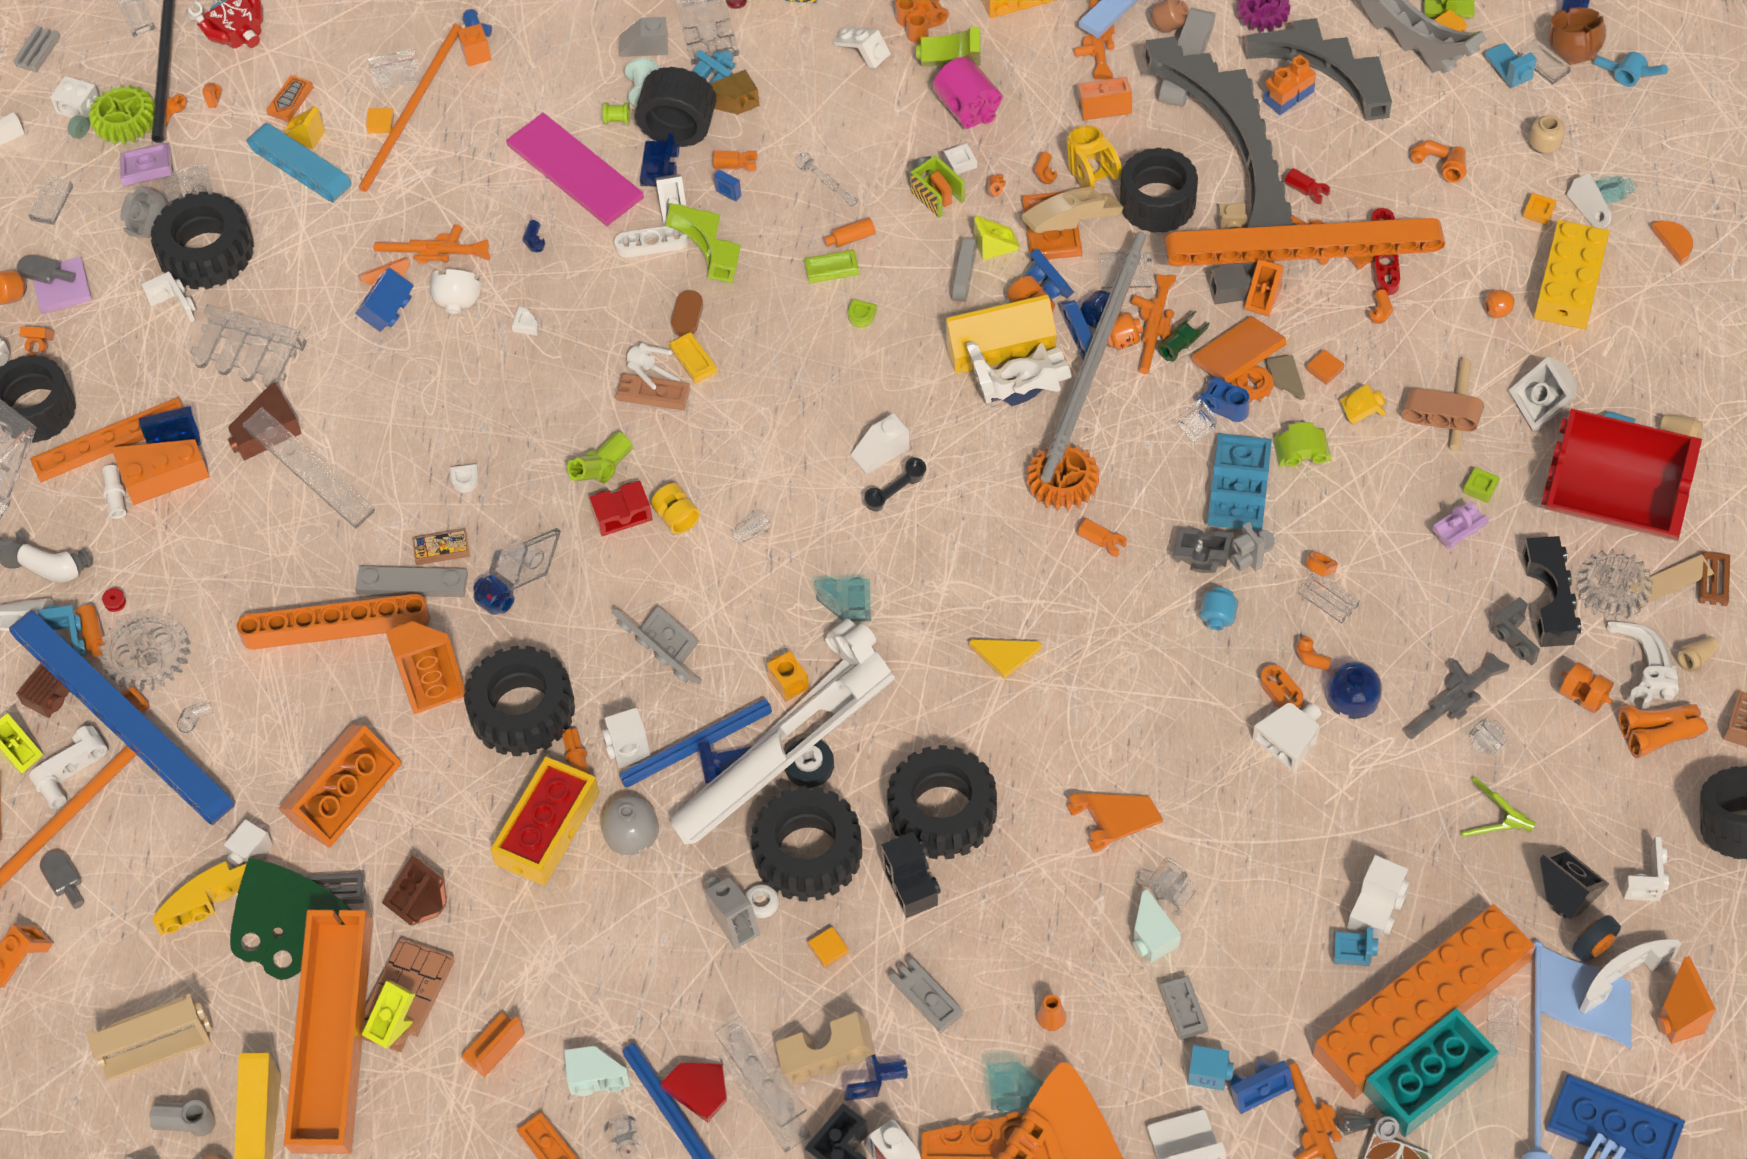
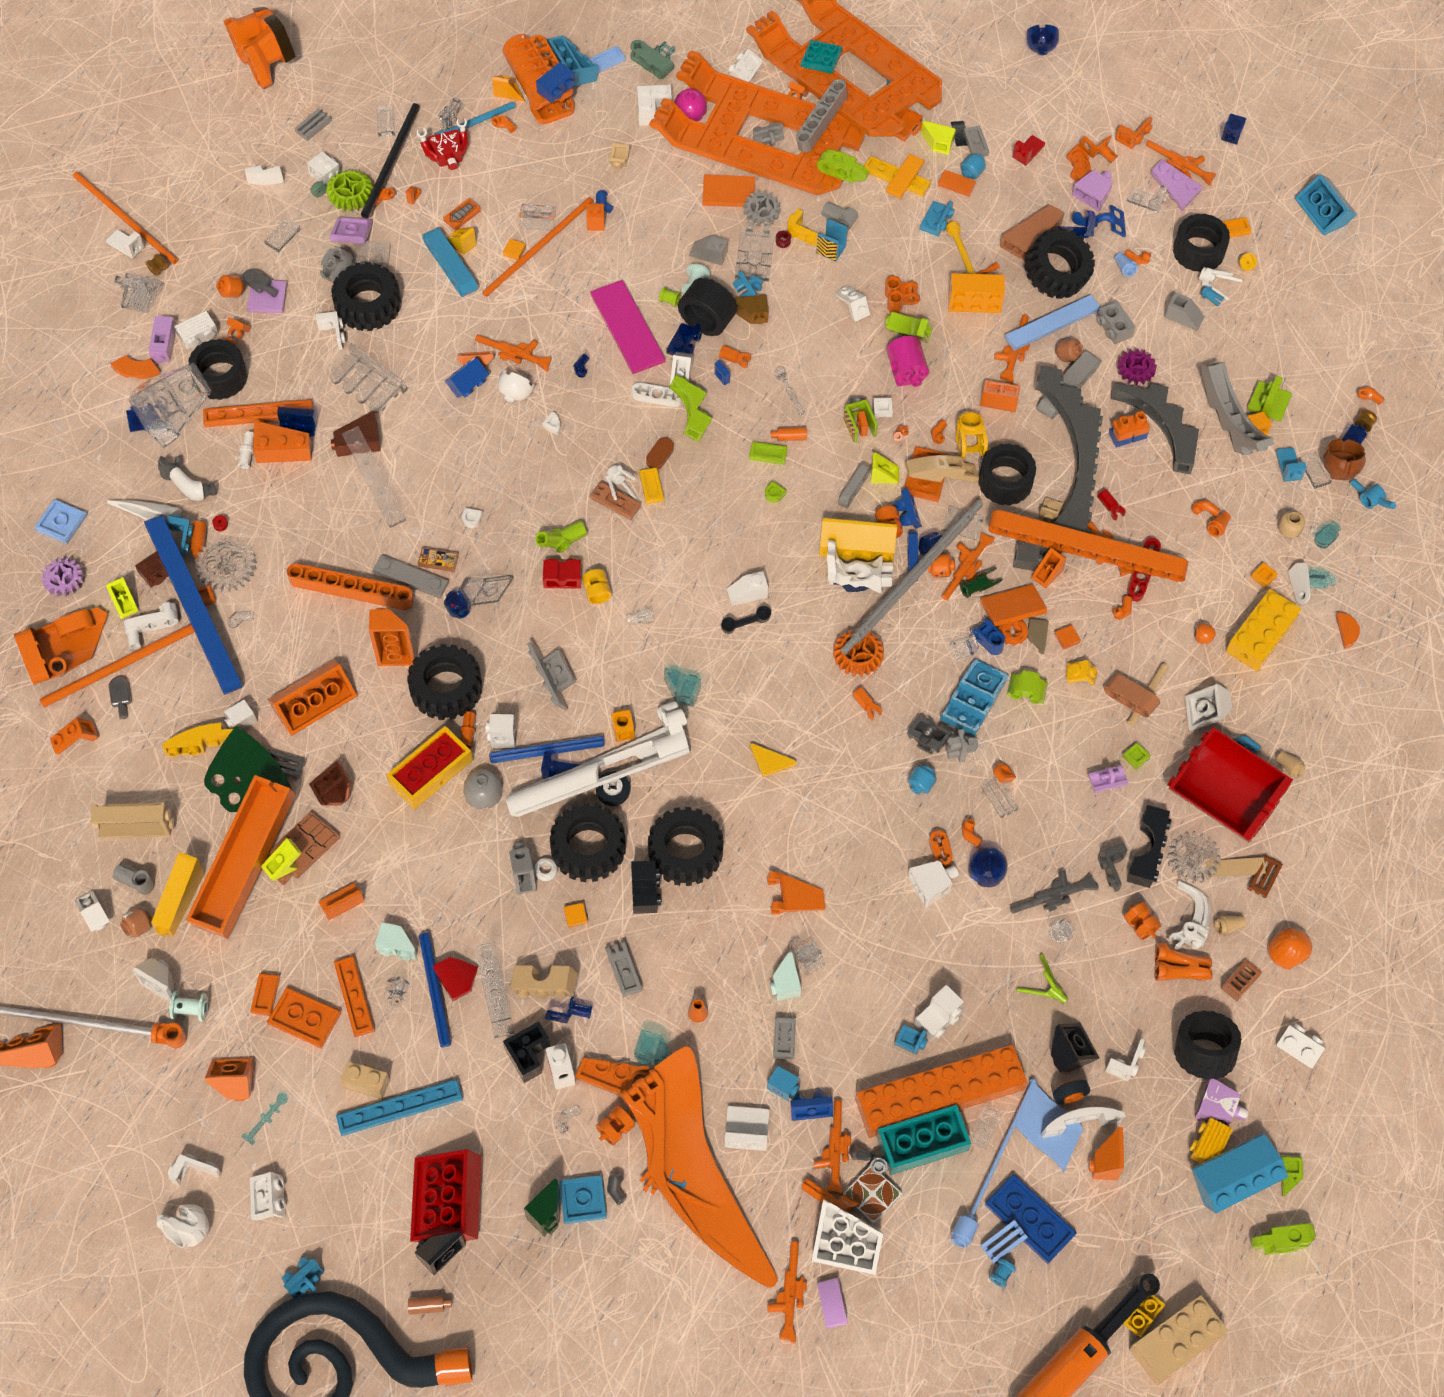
camera: 15 degrees right, 5 degrees up
(1596, 134) = (1327, 535): none -> clear light blue arm

